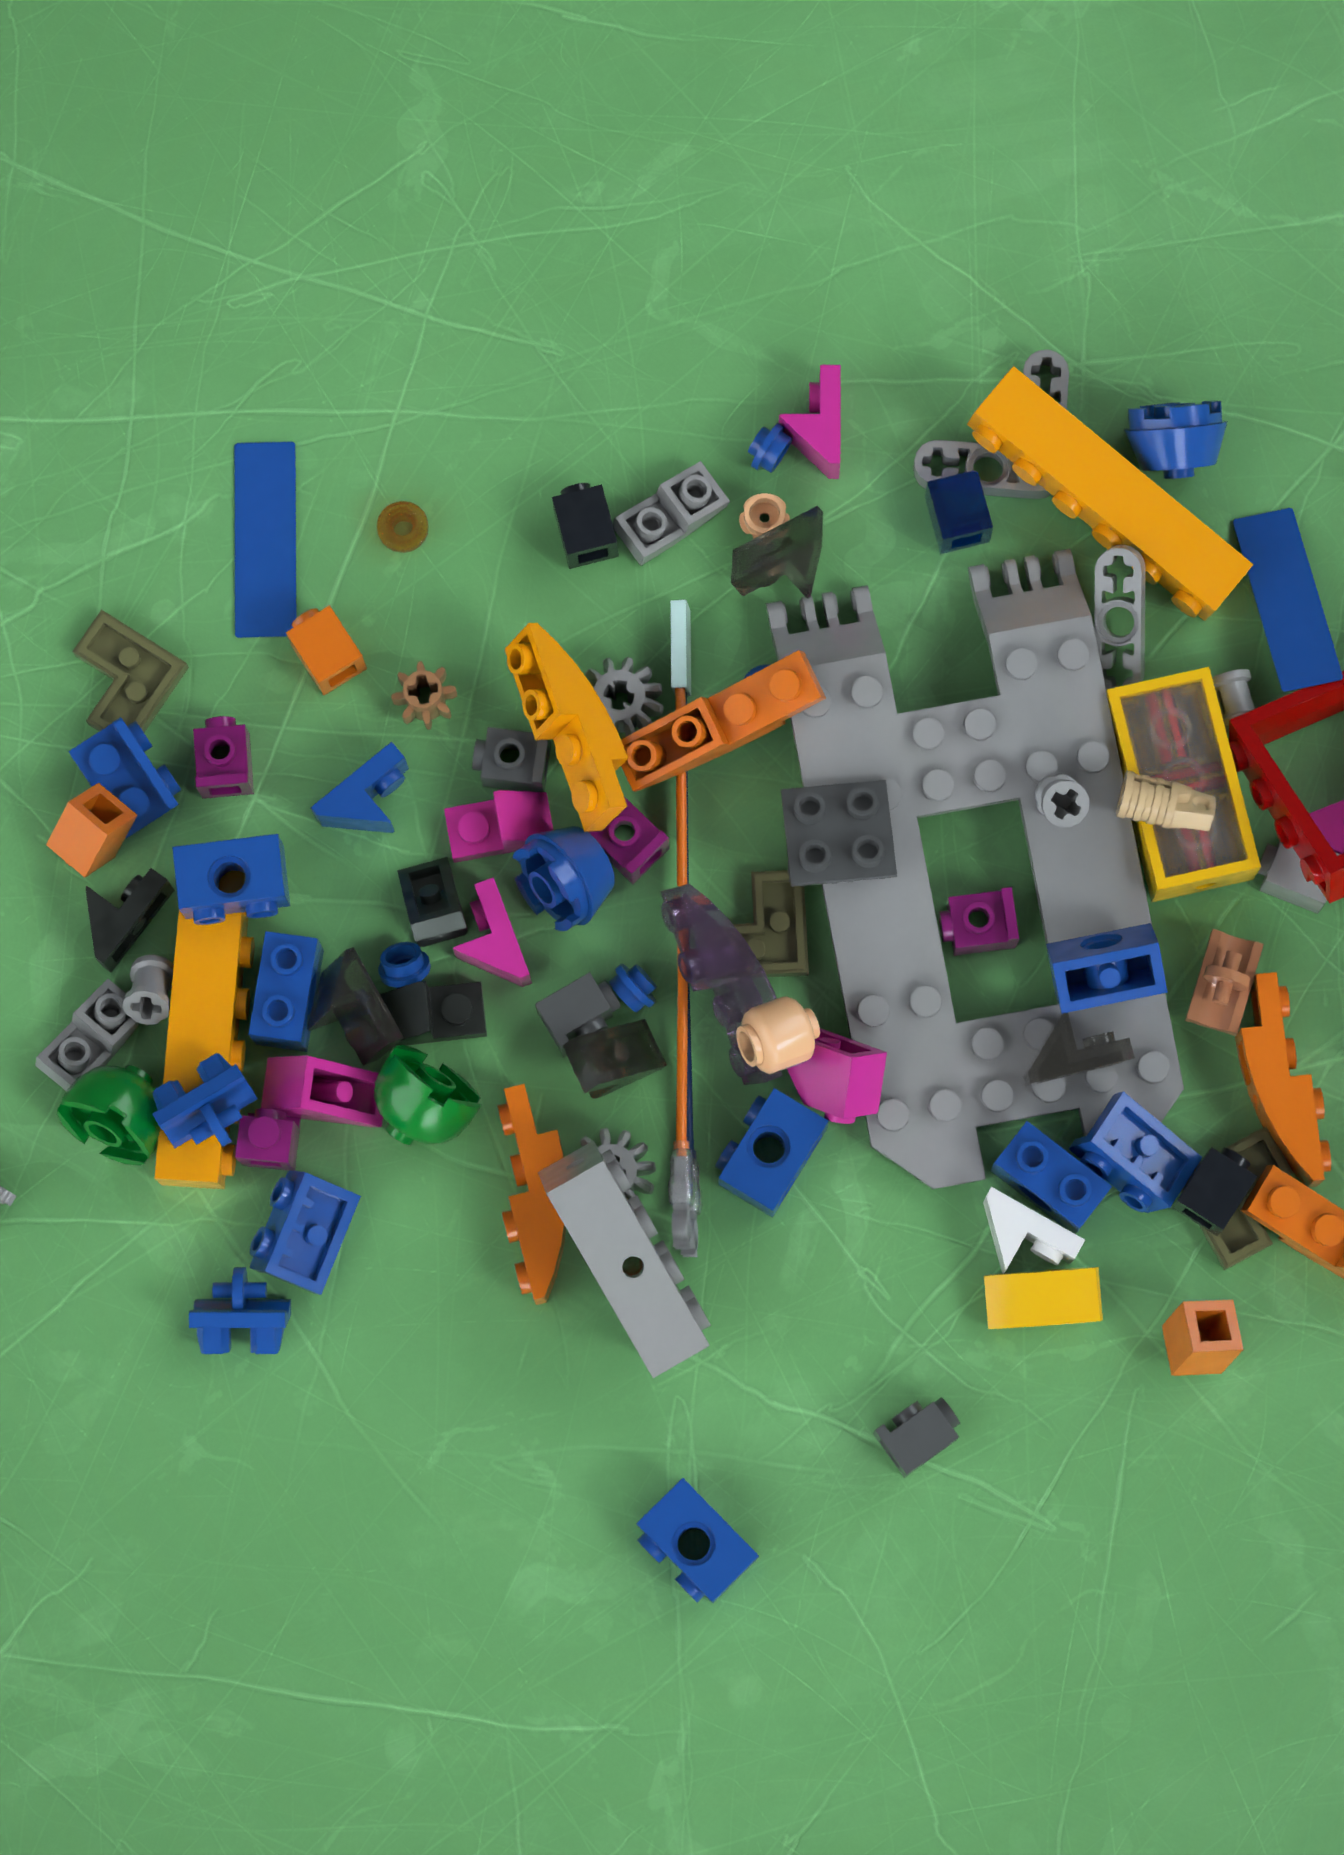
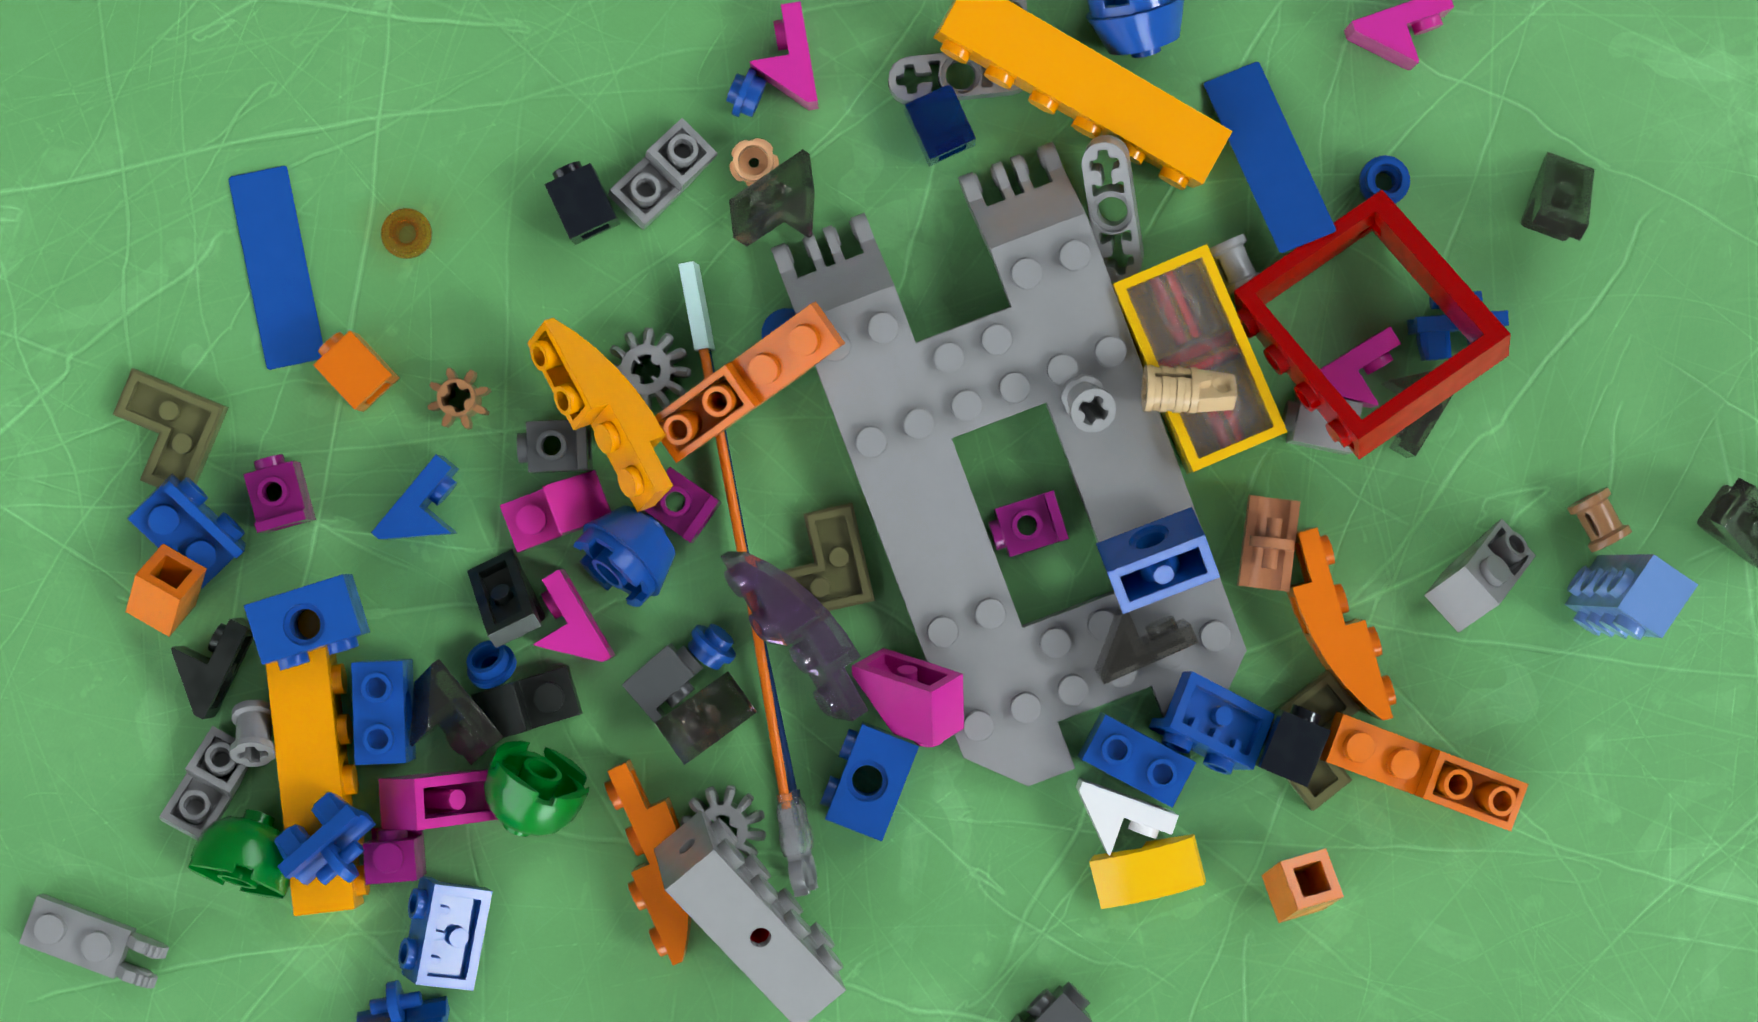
camera: 15 degrees left, 10 degrees up
(777, 1035) = (857, 680): light nougat head -> none
(838, 833) = (880, 473): dark grey hinge -> none

